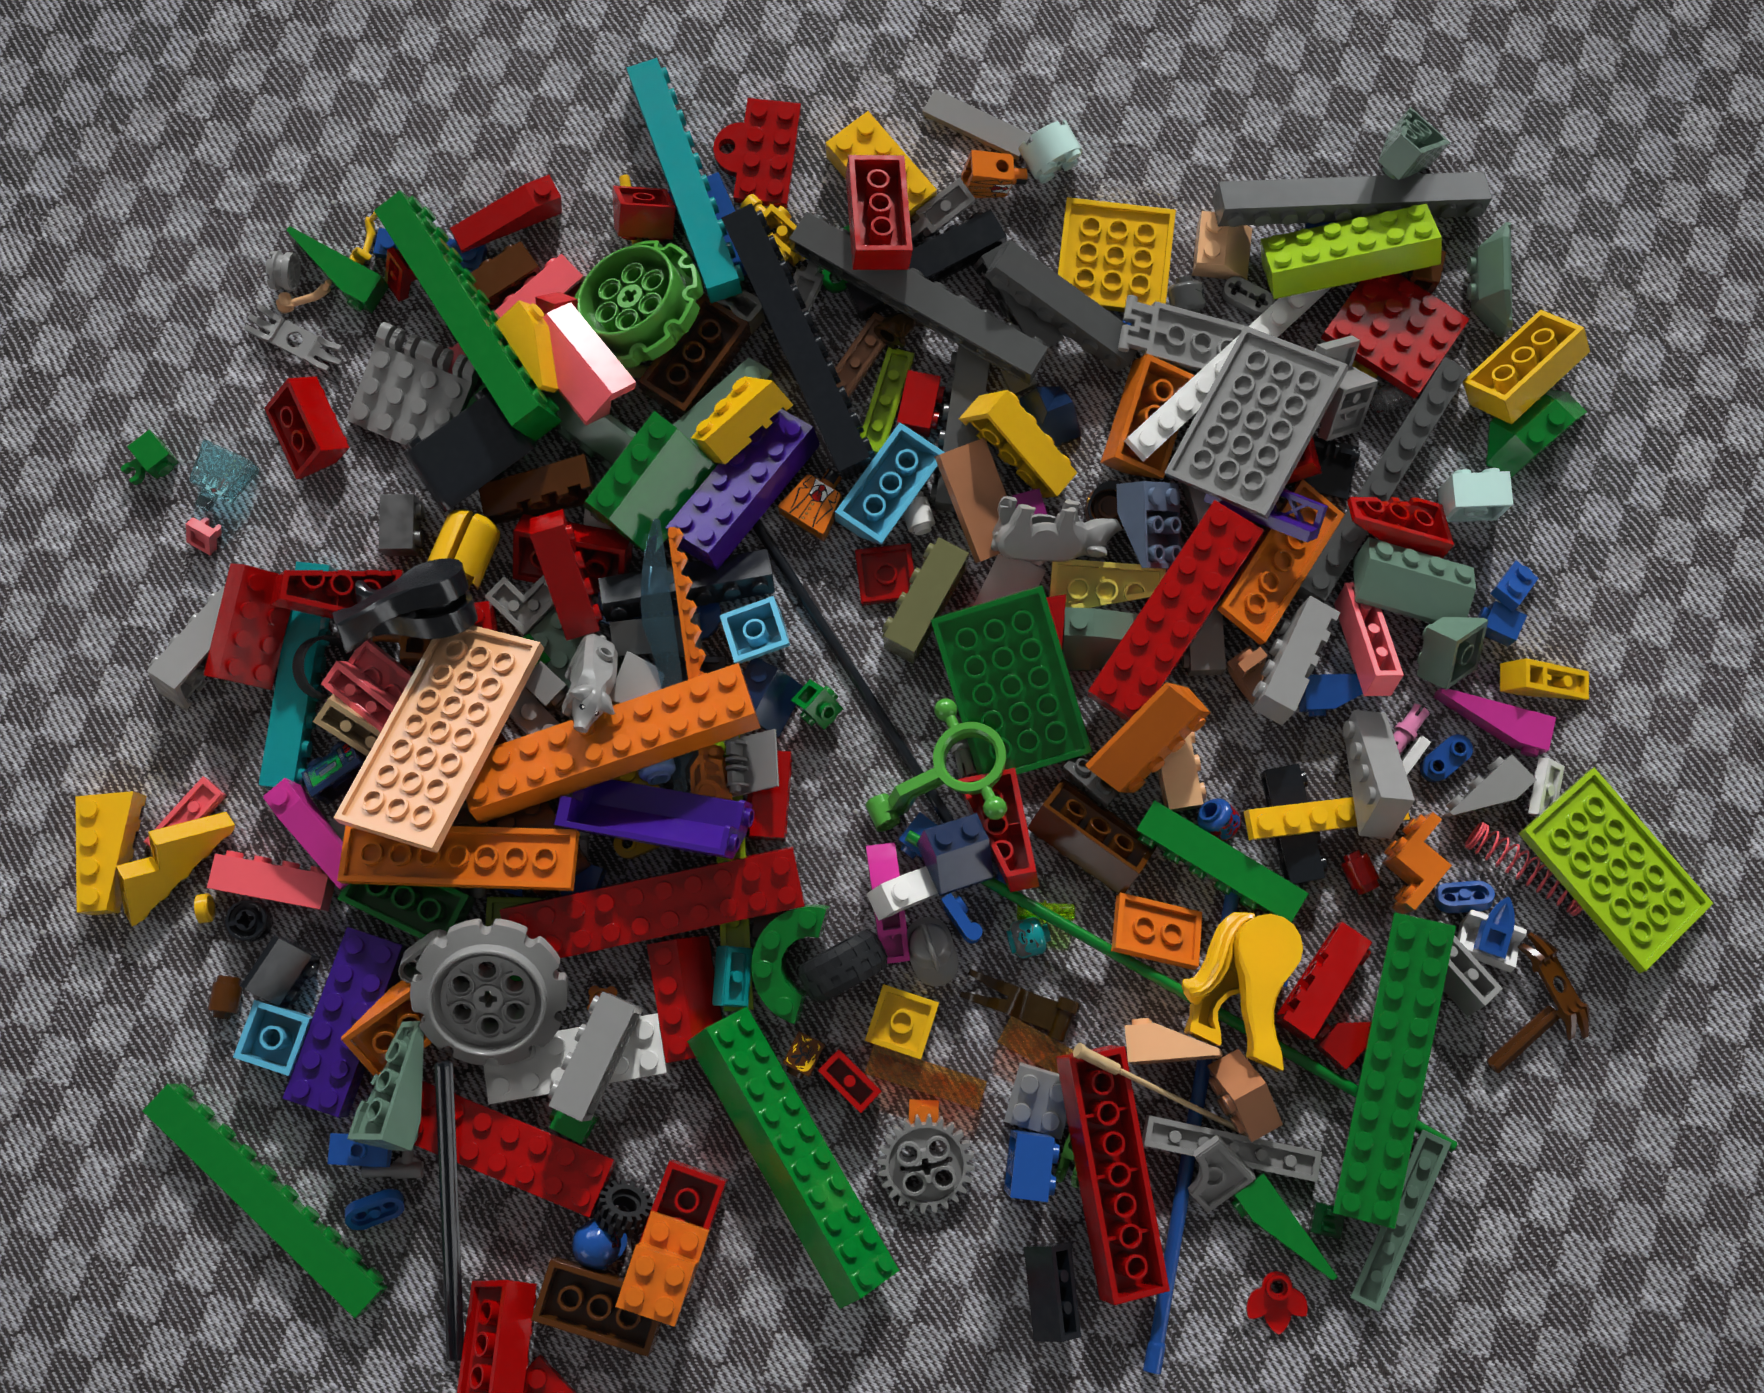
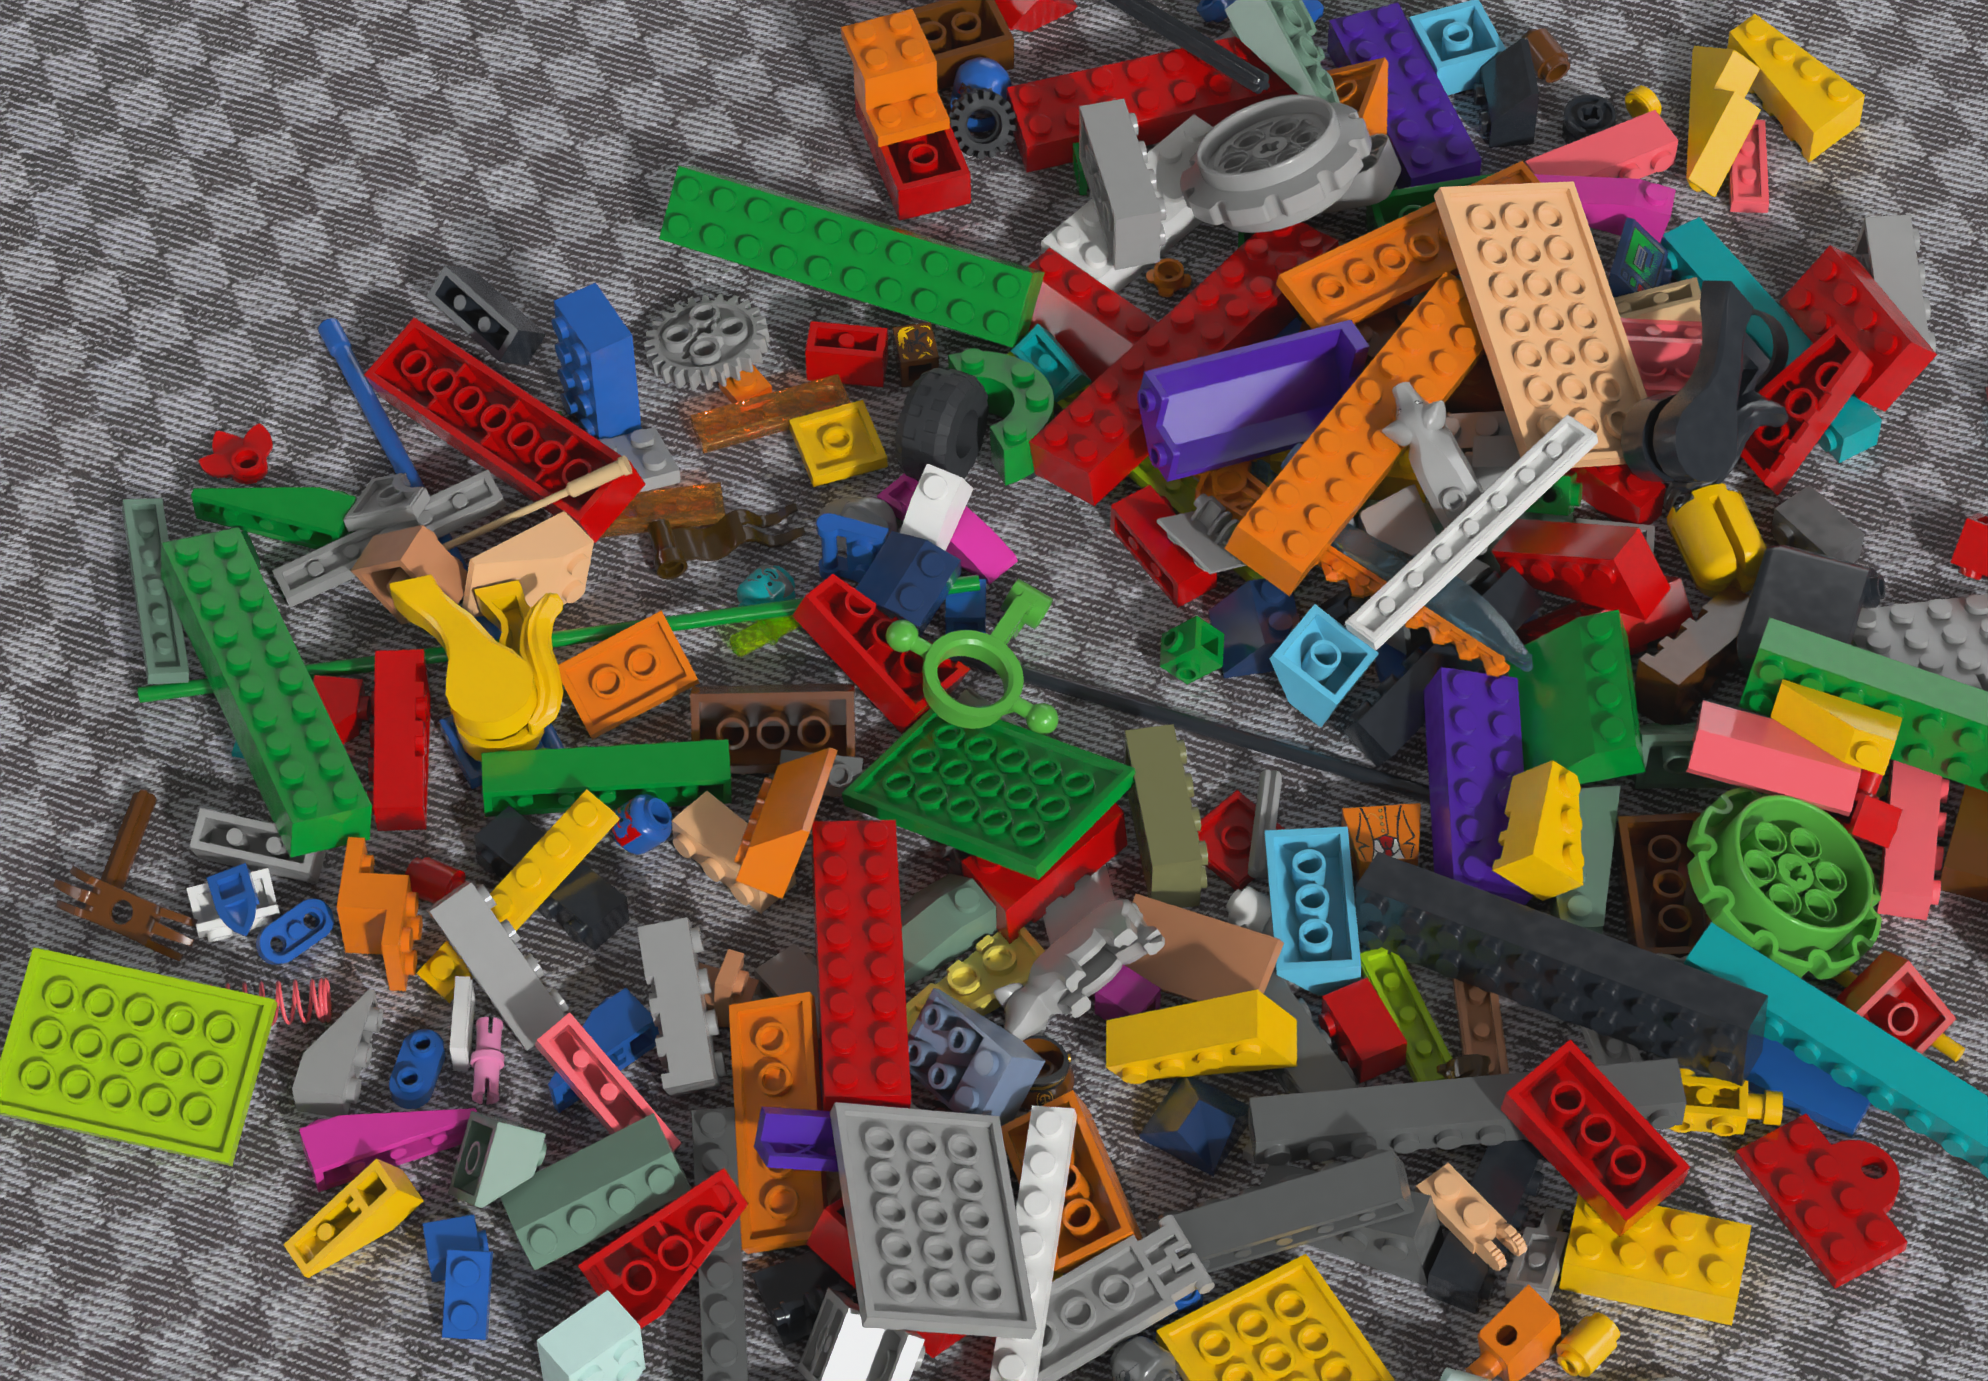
camera: 140 degrees right, 25 degrees down
(612, 624) = (1471, 532): none -> white tile
(867, 564) = (1264, 819): none -> light grey axle
(952, 154) = (1587, 1345): none -> yellow brick
(962, 248) = (1471, 1217): none -> light nougat hinge
(1547, 786) = (274, 1105): white plate -> none

